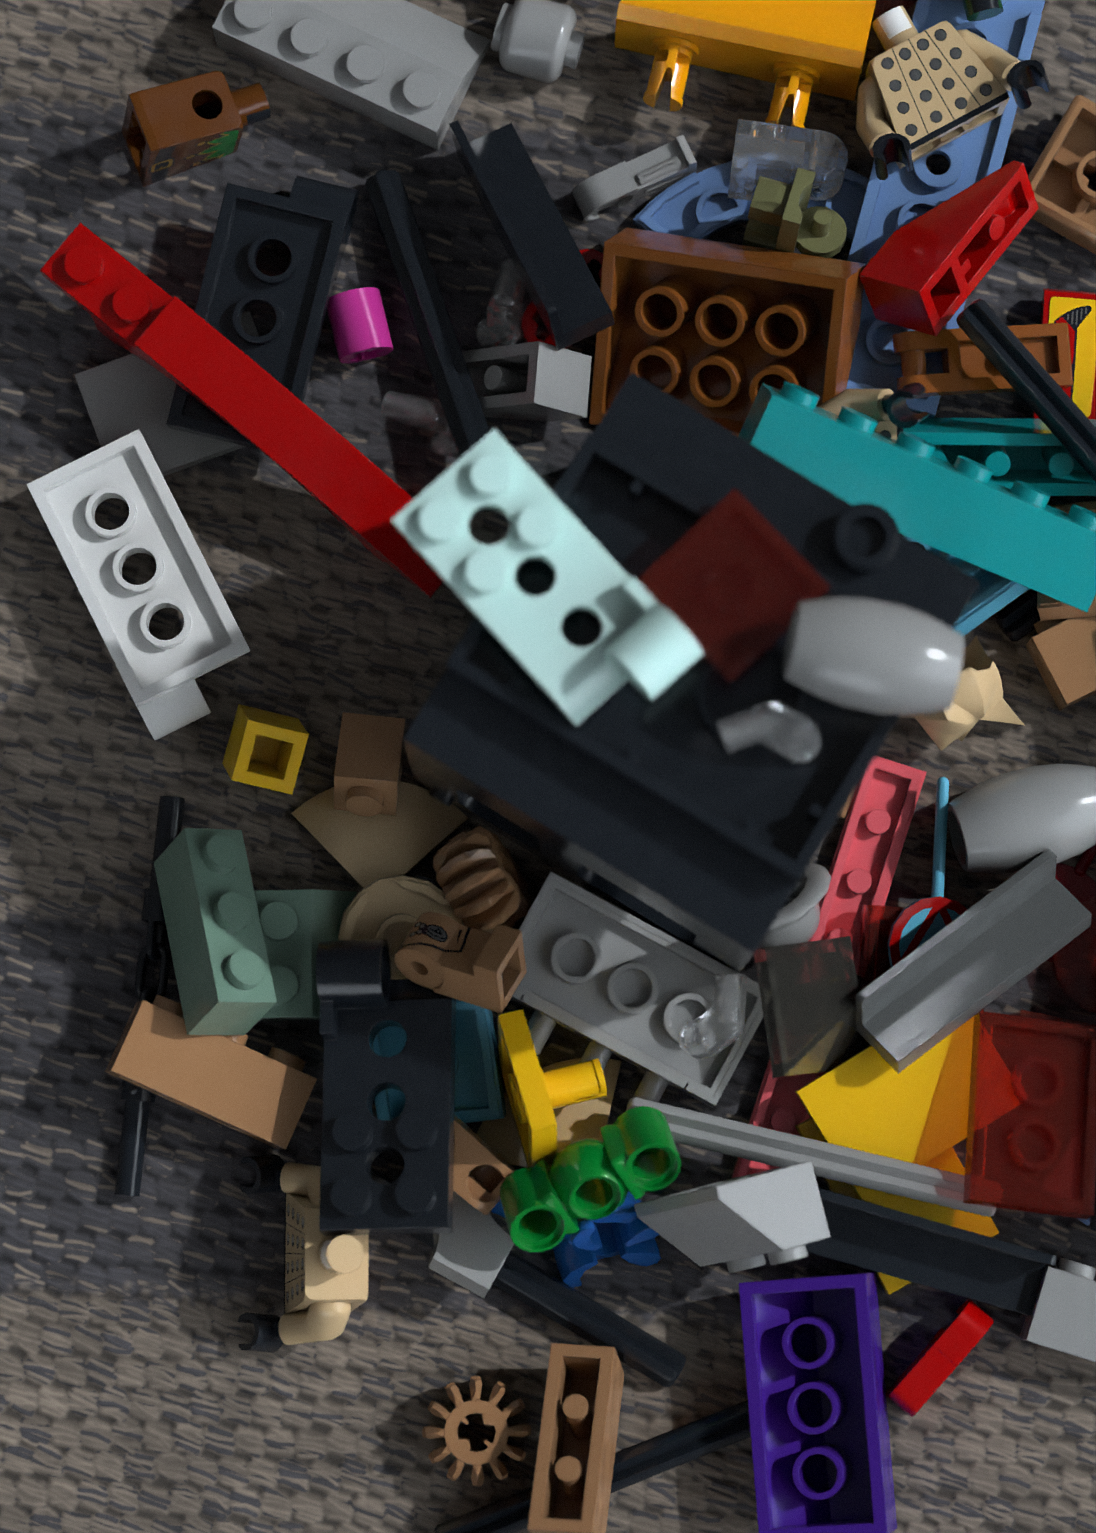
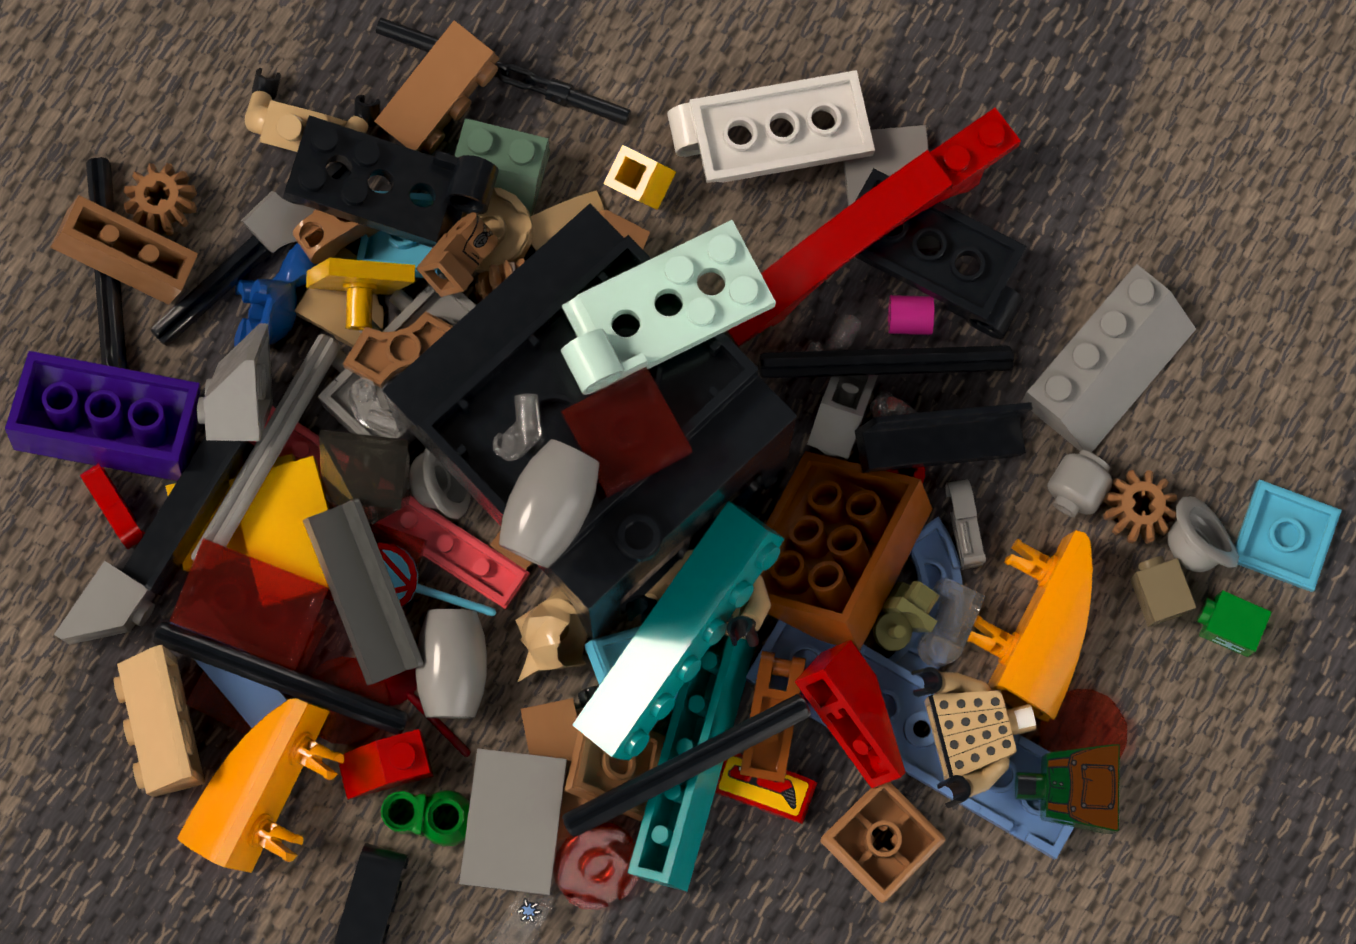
camera: 105 degrees right, 5 degrees down
(188, 123) = (1076, 218): reddish brown torso -> none
(214, 932) = (526, 109): sand green brick -> none
(589, 1179) = (291, 297): green piece -> none
(633, 1027) = (385, 354): none -> medium nougat tile

